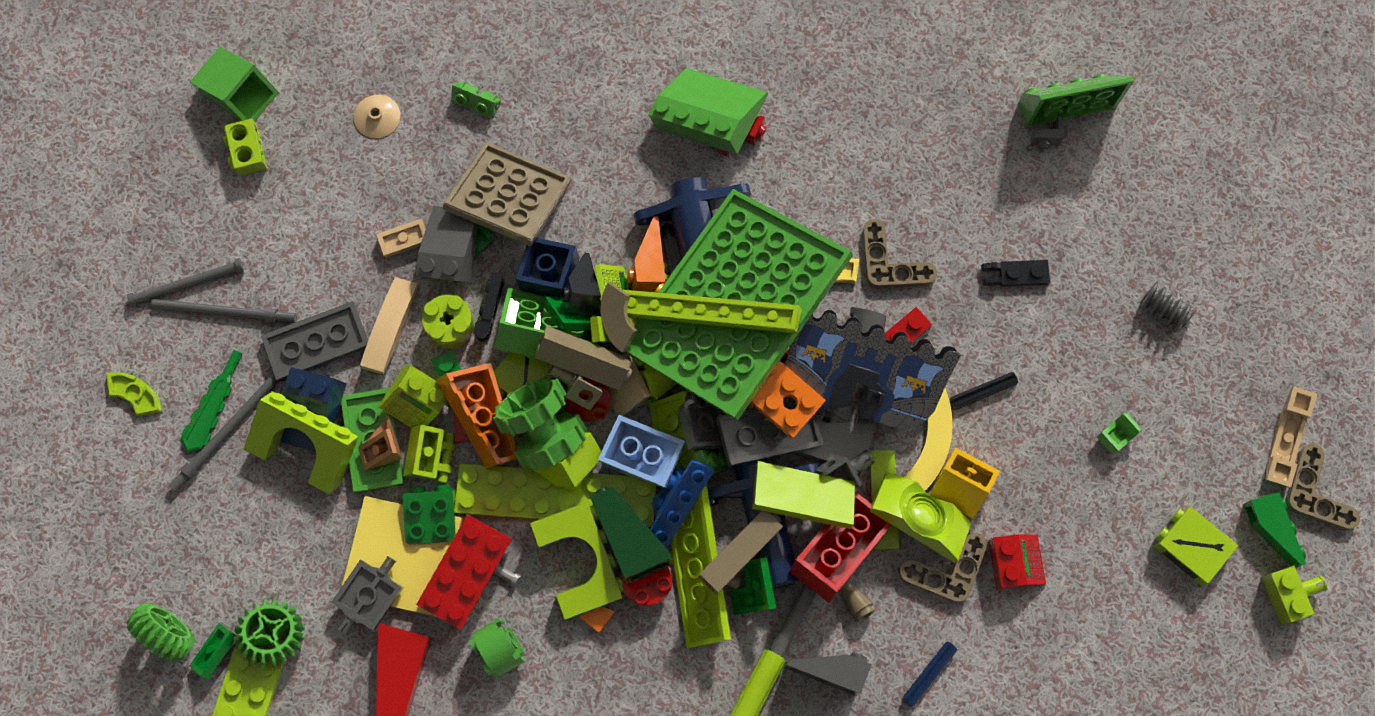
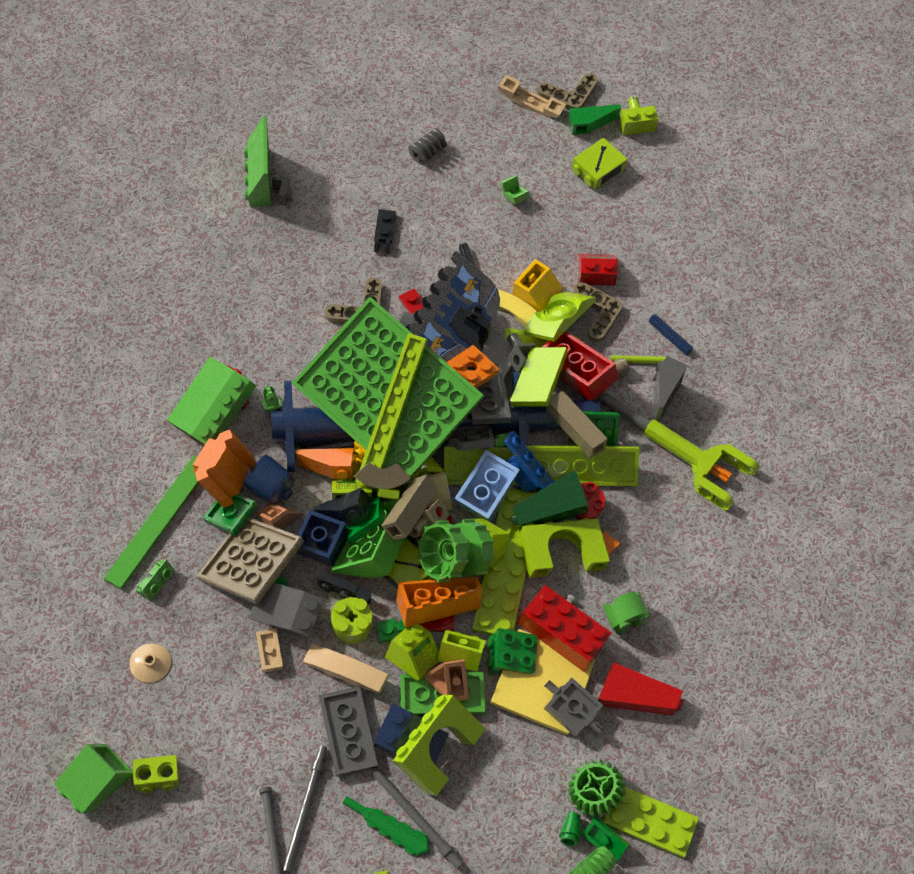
camera: 85 degrees left, 15 degrees down
(222, 609) = (570, 830): none -> green cone
(551, 87) = (153, 527): none -> bright green tile
(572, 161) = (230, 517): none -> green plate
(574, 215) = (278, 516): none -> nougat slope
(613, 197) = (270, 480): none -> dark blue cylinder
(618, 139) = (223, 467): none -> orange slope
(725, 177) = (271, 401): none -> bright green hinge
(881, 633) = (639, 359): none -> lime bar

